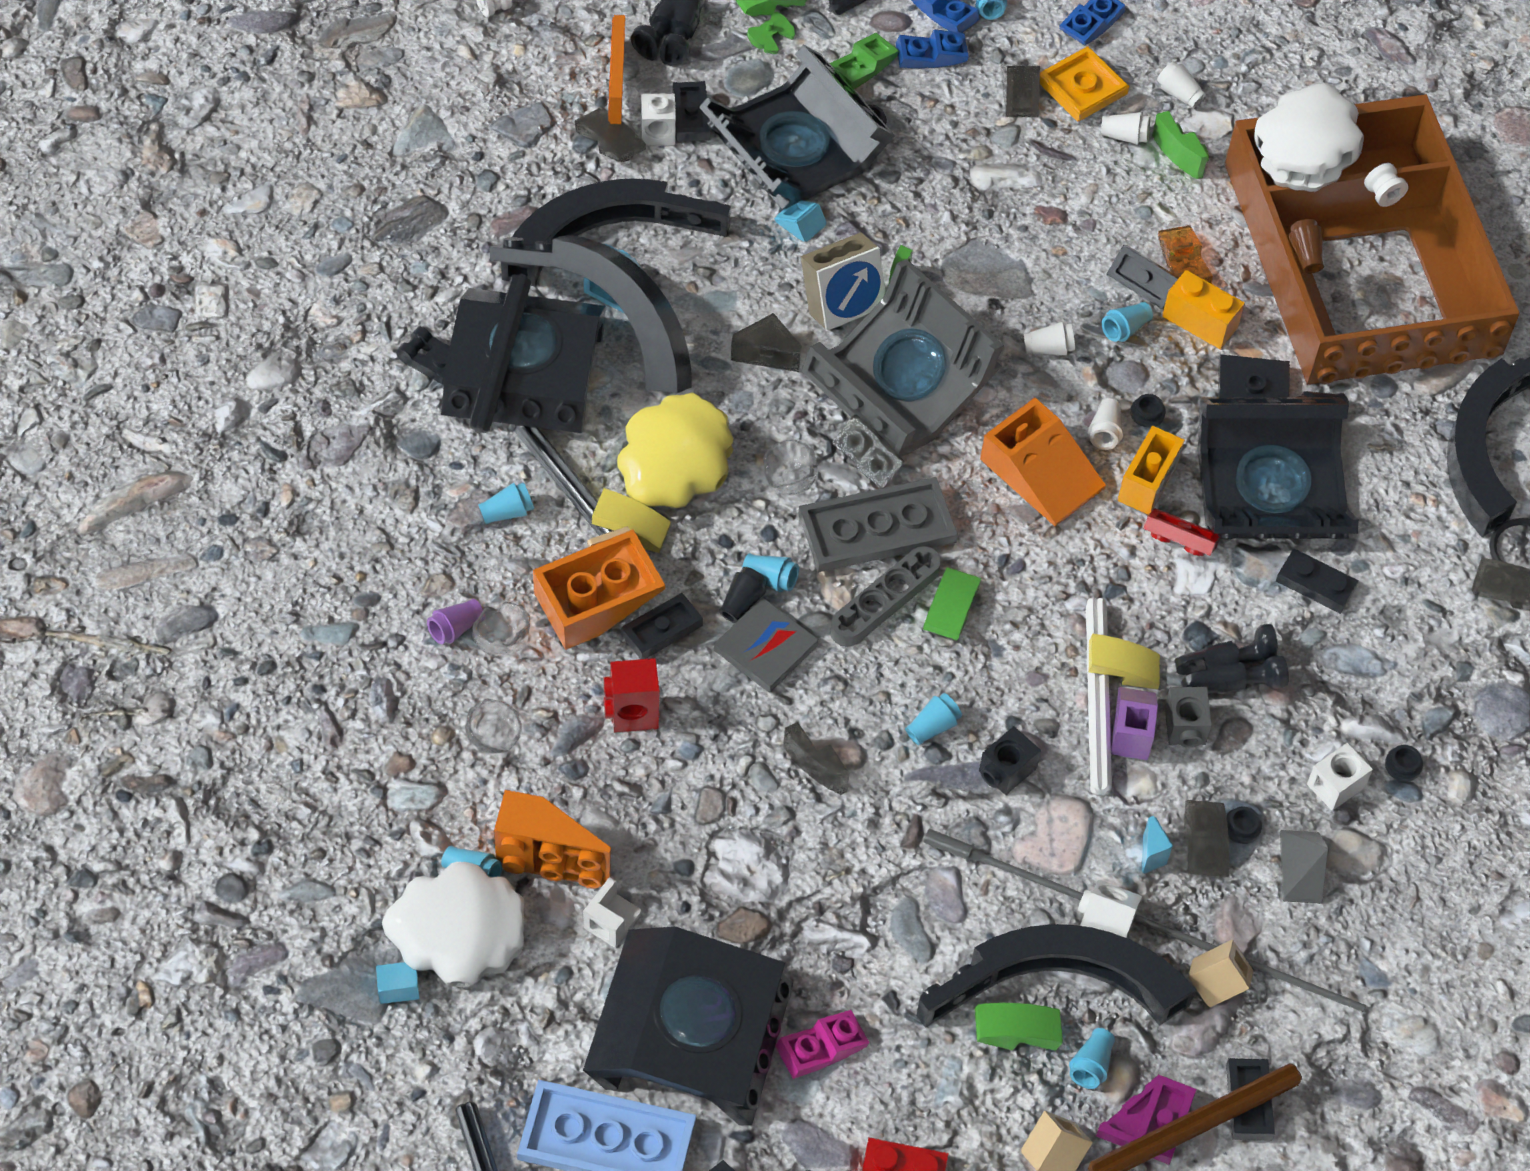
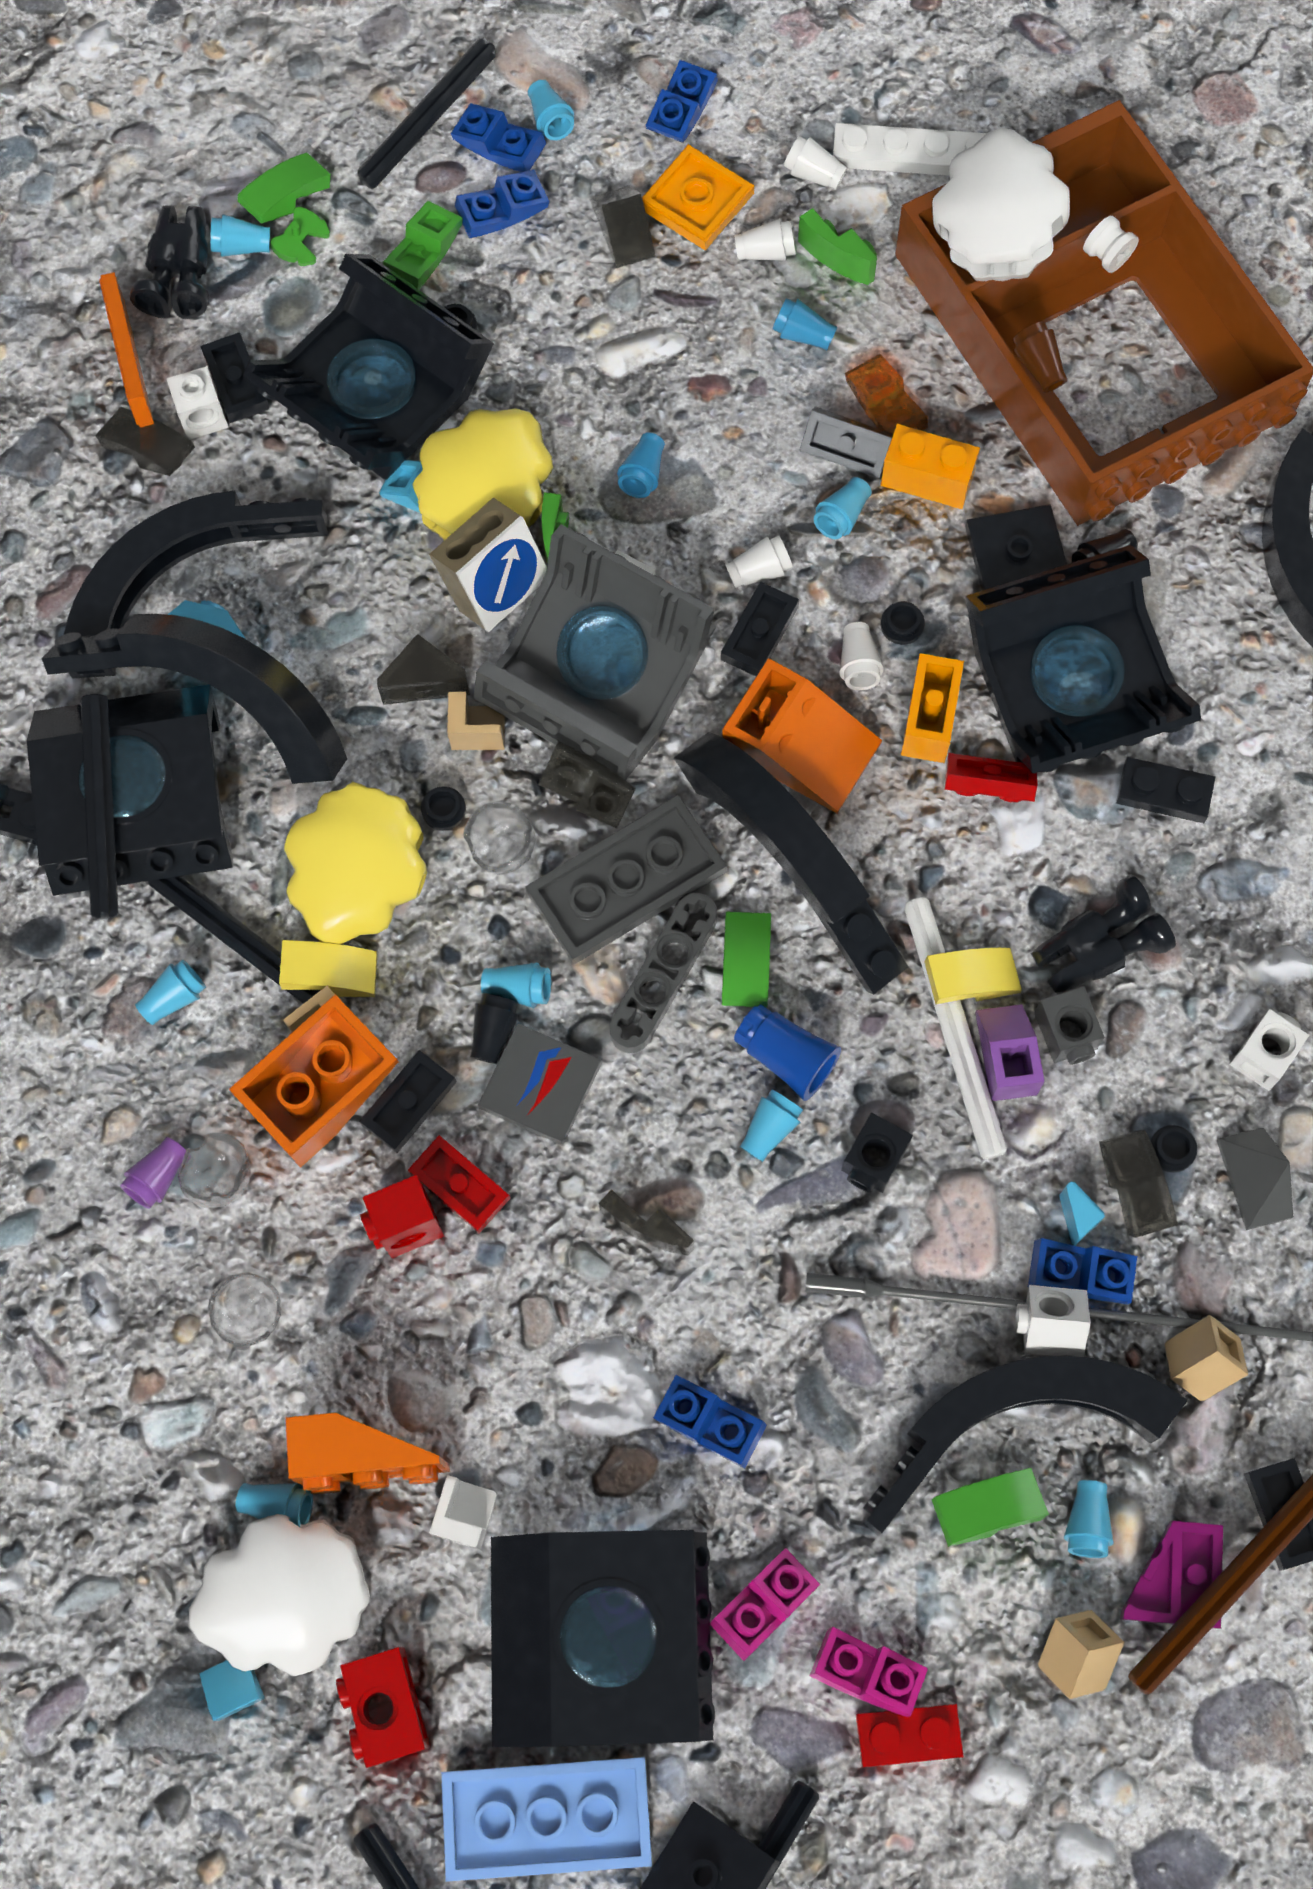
camera: 10 degrees left, 15 degrees up
(514, 1046) = (405, 1730): none -> red brick
(684, 693) = (459, 1184): none -> red plate
(724, 19) = (238, 237): none -> medium azure cone
(753, 439) = (443, 808): none -> black plate
(794, 392) = (473, 725): none -> tan panel
(819, 908) = (710, 1421): none -> blue slope
(865, 206) = (482, 460): none -> light yellow piece
(886, 1114) = (868, 1672): none -> dark pink slope
(964, 672) = (787, 1050): none -> blue plant
(979, 253) = (641, 468): none -> dark azure cone
(1020, 530) = (801, 848): none -> black arch
(1037, 381) = (759, 629): none -> black plate
(1136, 190) = (803, 325): none -> dark azure cone
(1160, 893) = (1100, 1271): none -> blue slope
(1240, 89) = (899, 148): none -> white plate

